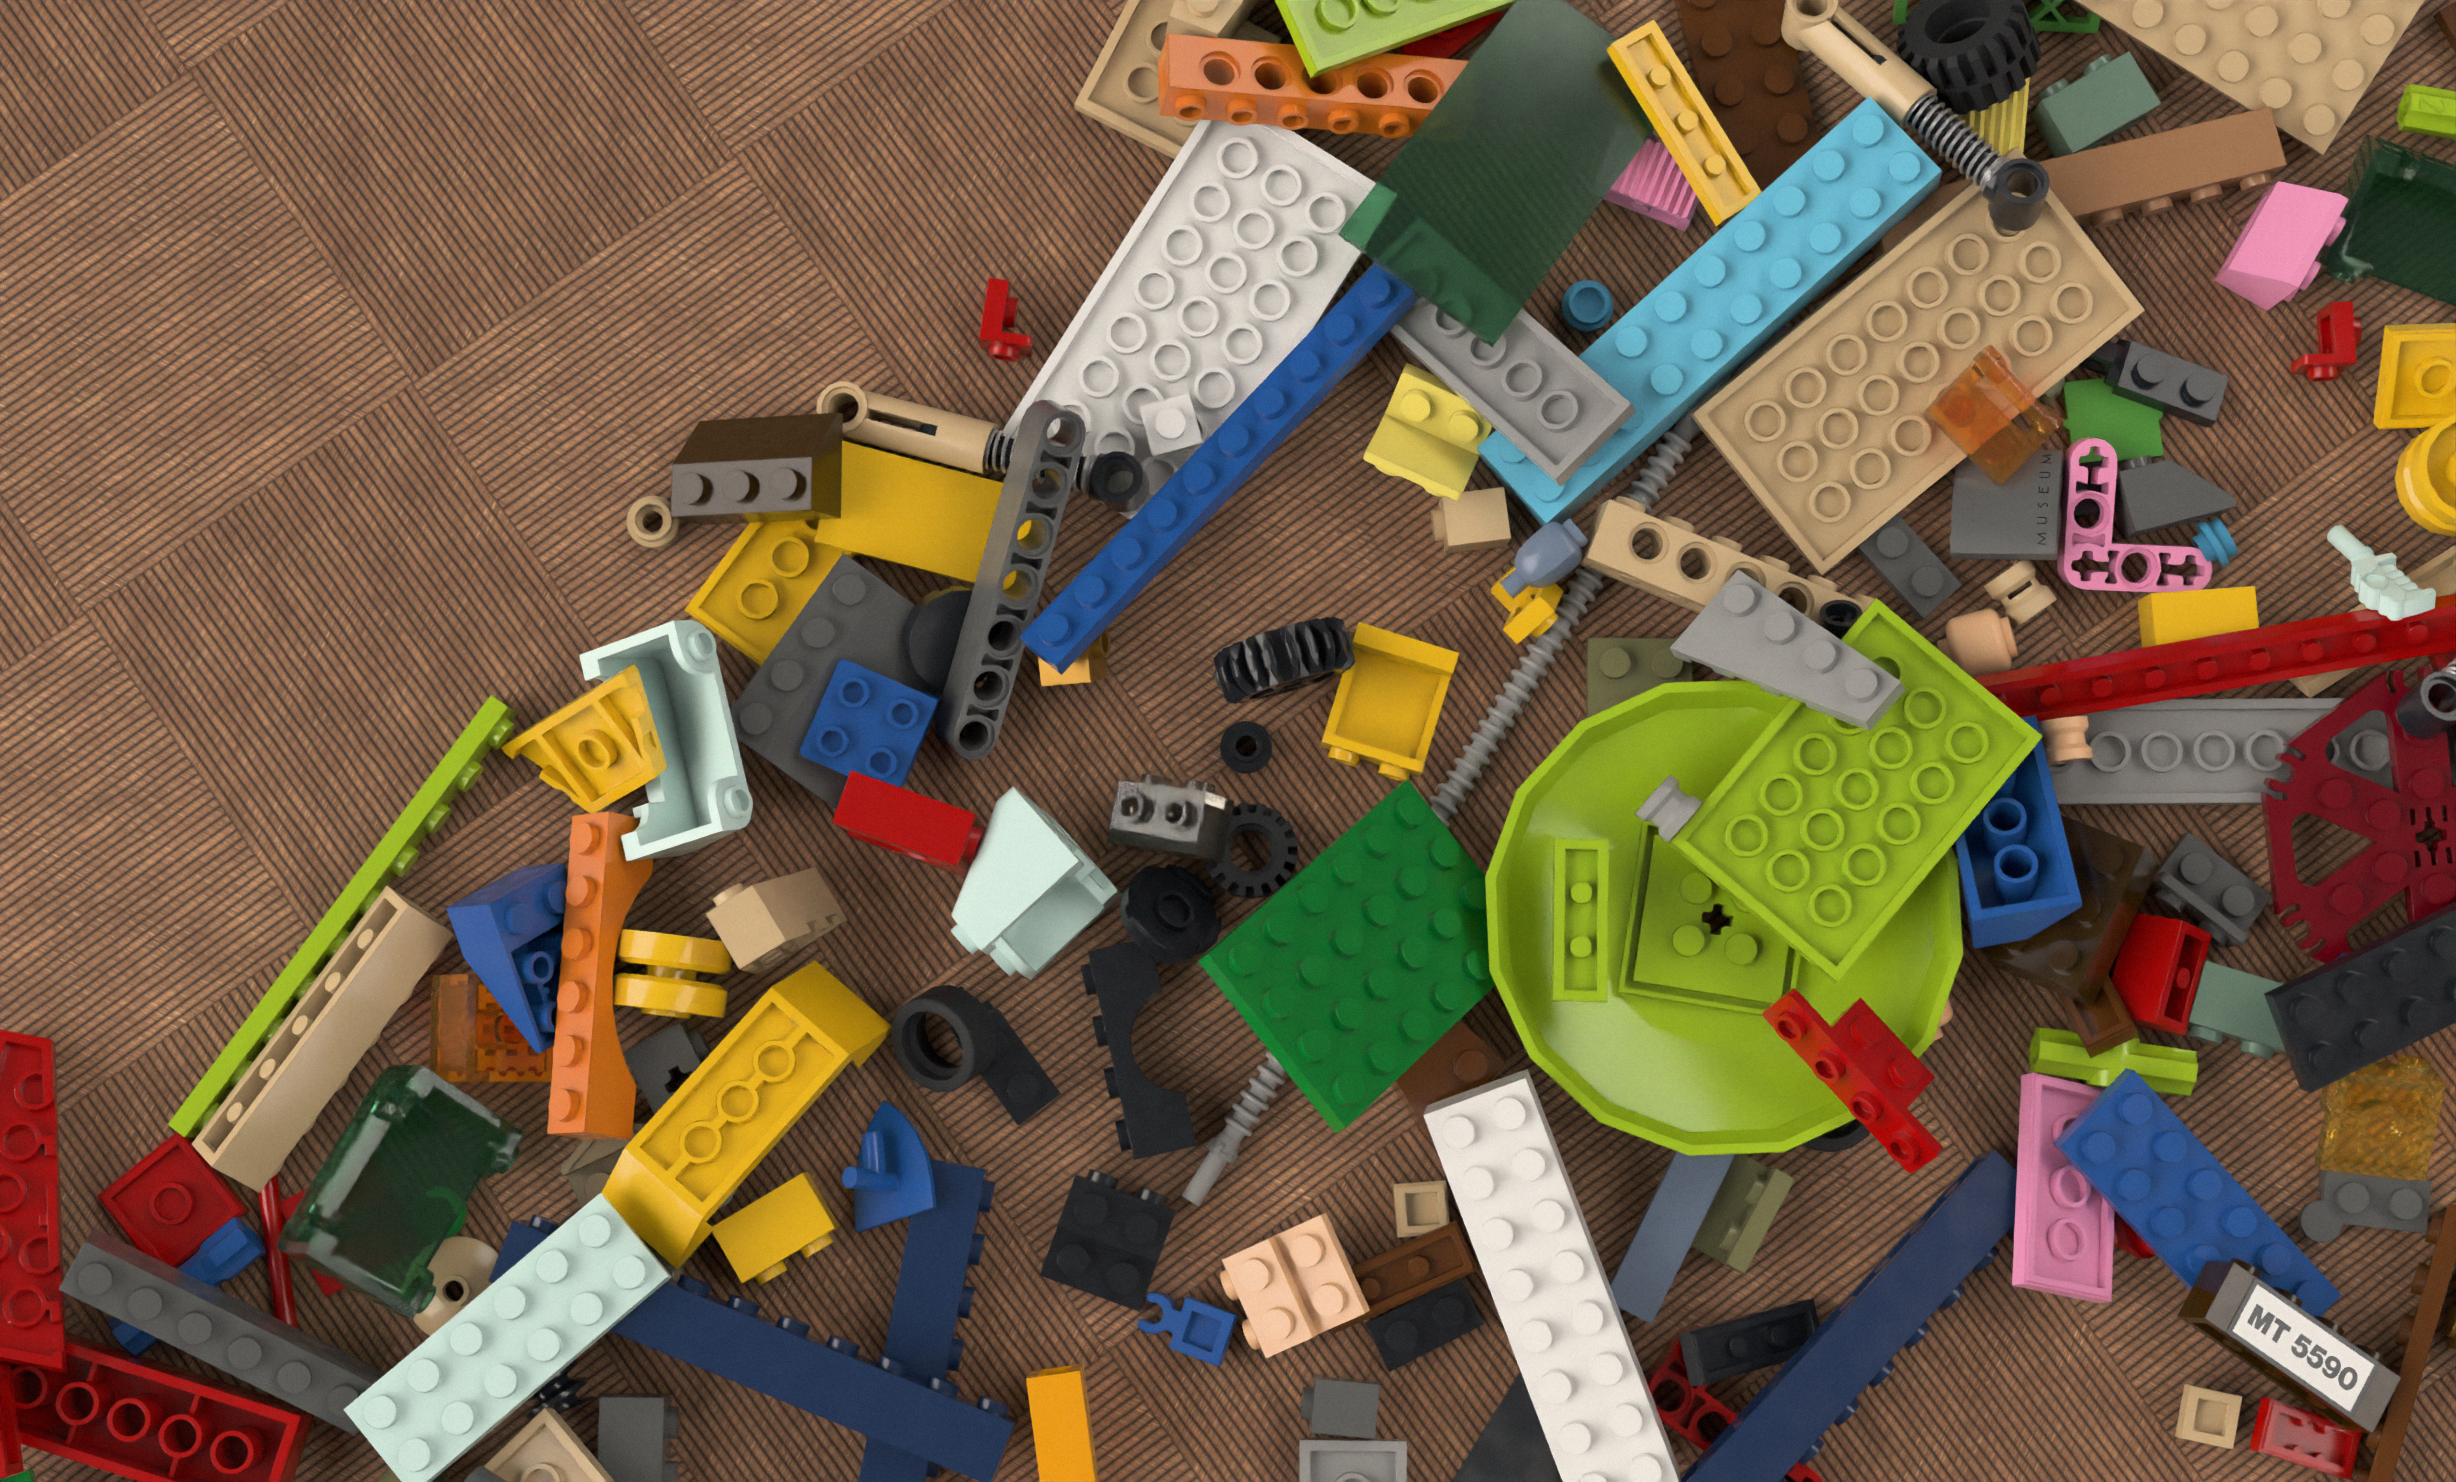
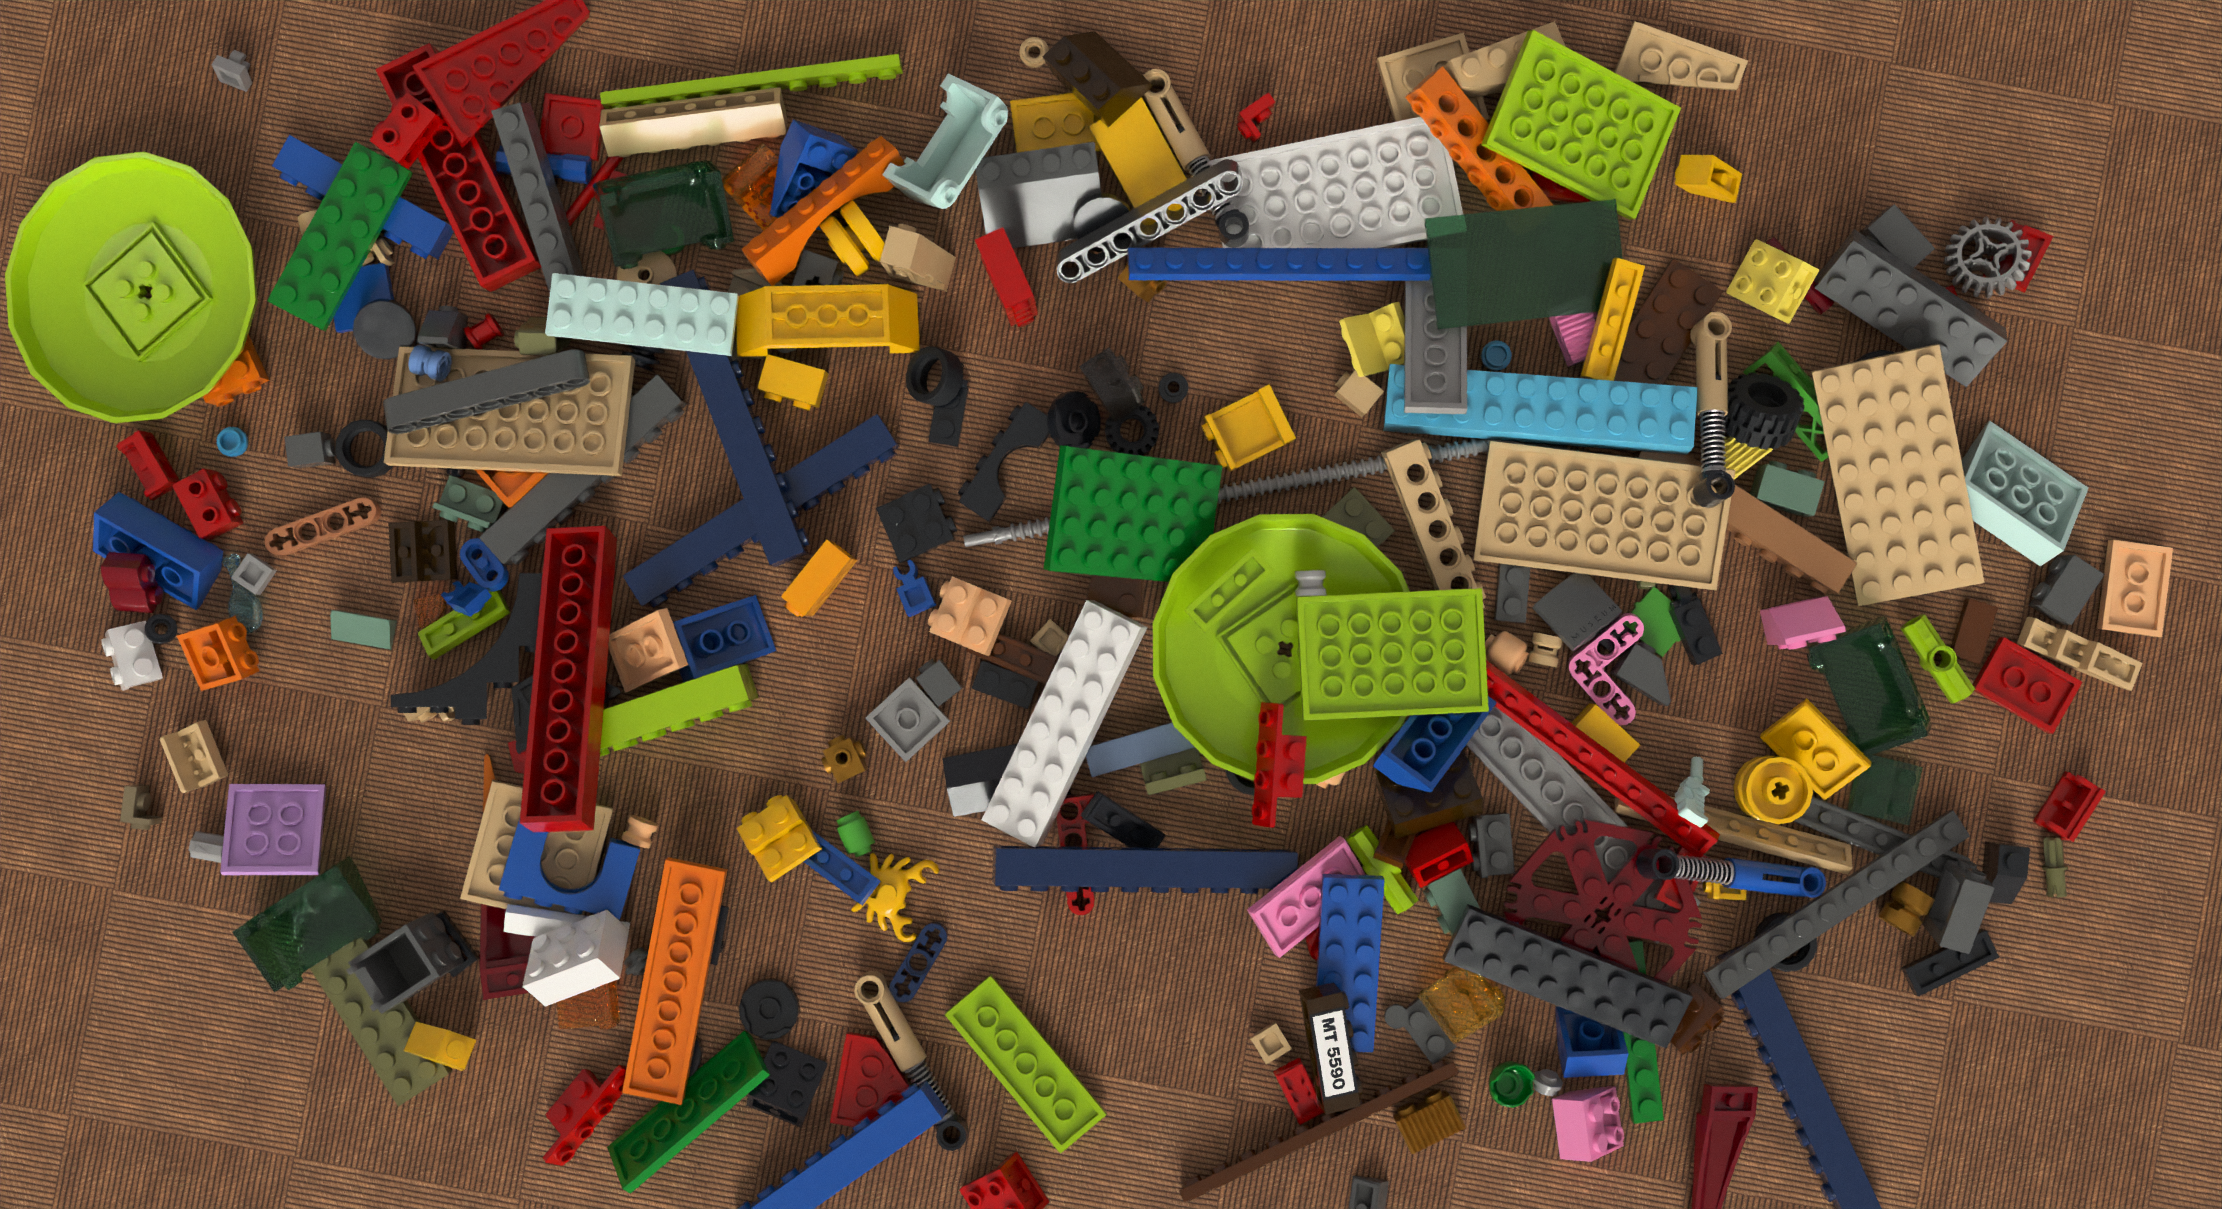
camera: 50 degrees right, 5 degrees up
(597, 743) = (919, 116): yellow wing -> none
(869, 725) = (1033, 222): blue bracket -> none
(891, 1172) = (860, 407): blue shield -> none
(1028, 889) = (1027, 350): light aqua windscreen -> none
(1171, 425) = (1278, 228): white plate -> none
(1284, 660) = (1223, 368): black gear -> none
(1530, 610) = (1348, 446): yellow bracket -> none
(1546, 557) = (1370, 436): sand blue plant -> none
(1775, 646) = (1422, 571): light grey wing -> none
(1842, 611) = (1460, 577): black hinge -> none
(1982, 427) = (1598, 568): clear orange plate -> none
(2065, 740) = (1498, 724): light nougat wheel -> none
(2215, 542) = (1644, 712): dark azure plate -> none
(2337, 343) = (1783, 684): red bracket -> none

